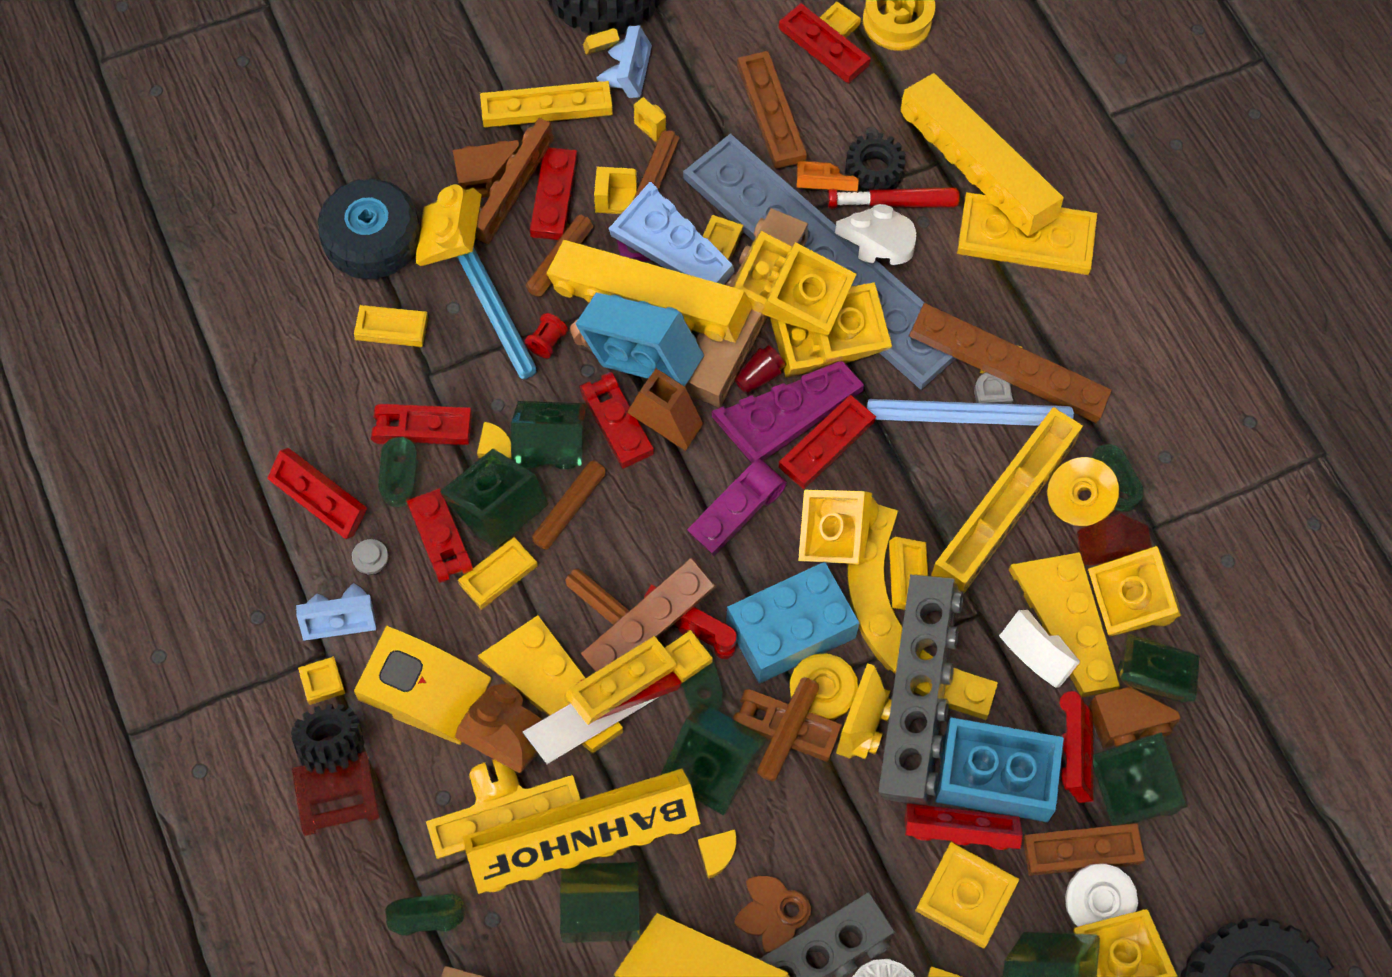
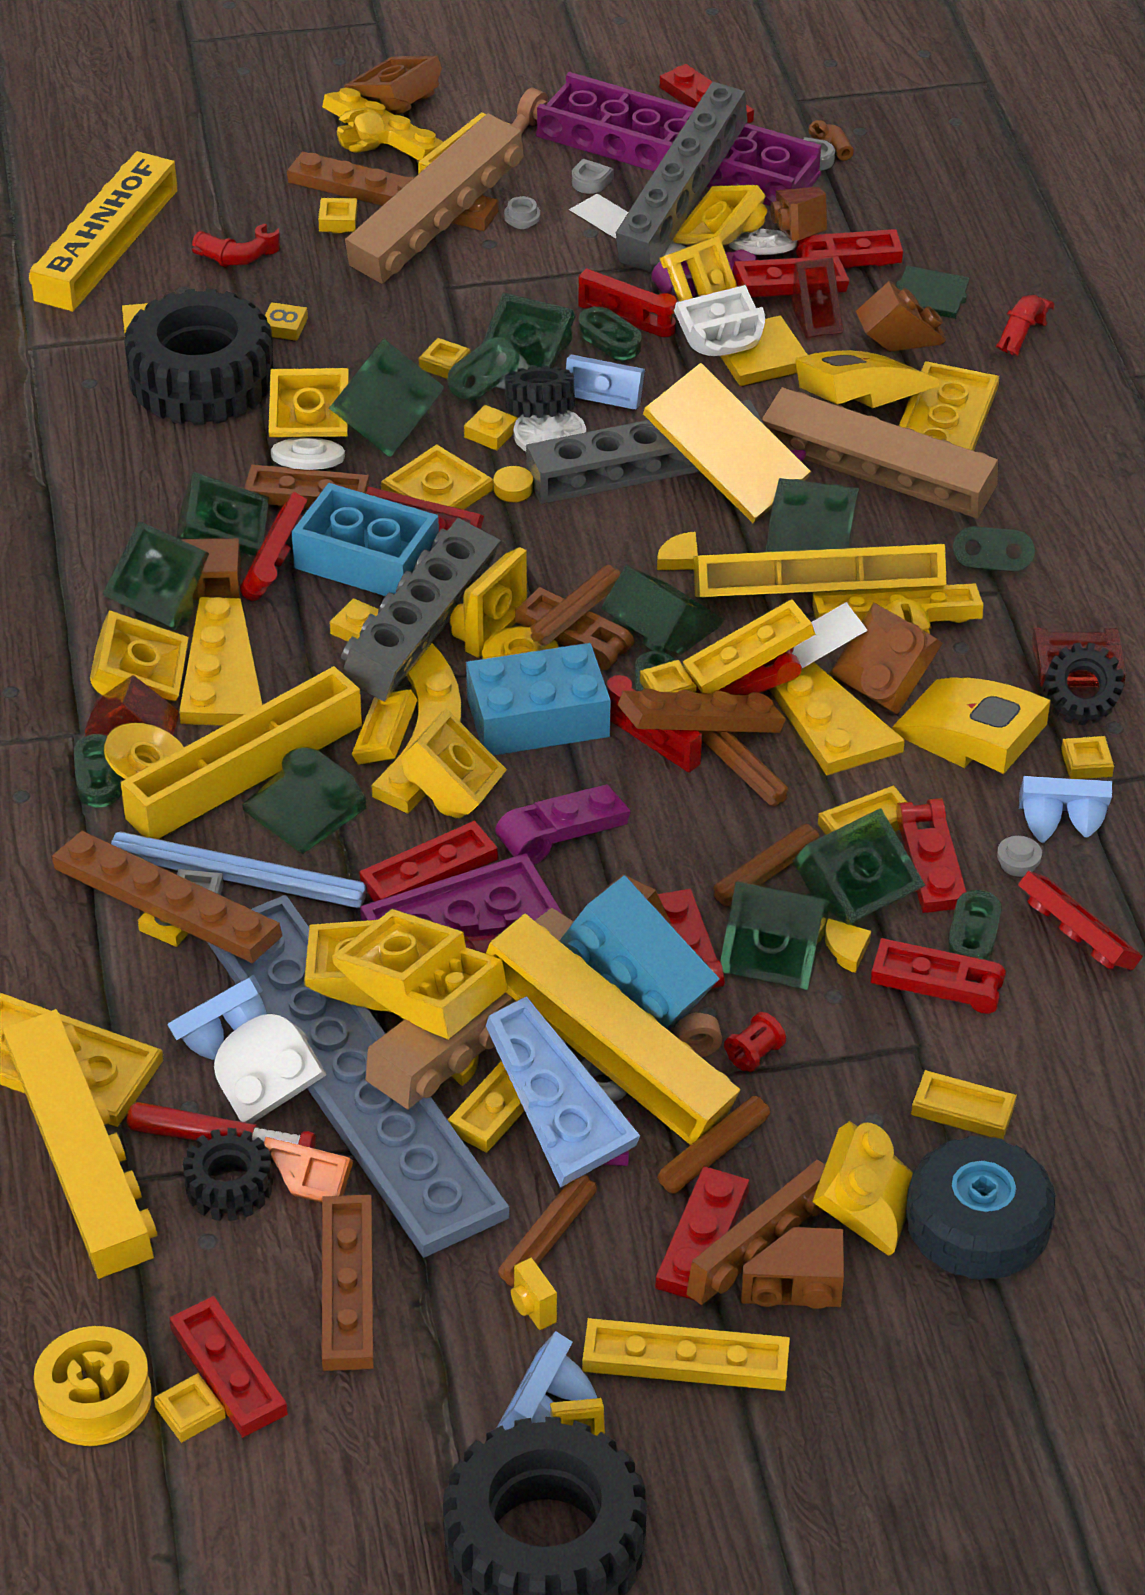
camera: 165 degrees left, 20 degrees down
(498, 315) = (810, 1075): dark azure axle -> none
(614, 189) = (616, 1214): yellow panel -> none
(766, 913) = (637, 501): dark orange plate -> none
(898, 910) = (513, 483): none -> yellow tile
(929, 269) = (201, 1025): none -> light blue tile
(944, 490) = (306, 799): none -> clear green slope
(1042, 653) = (279, 640): white slope -> none

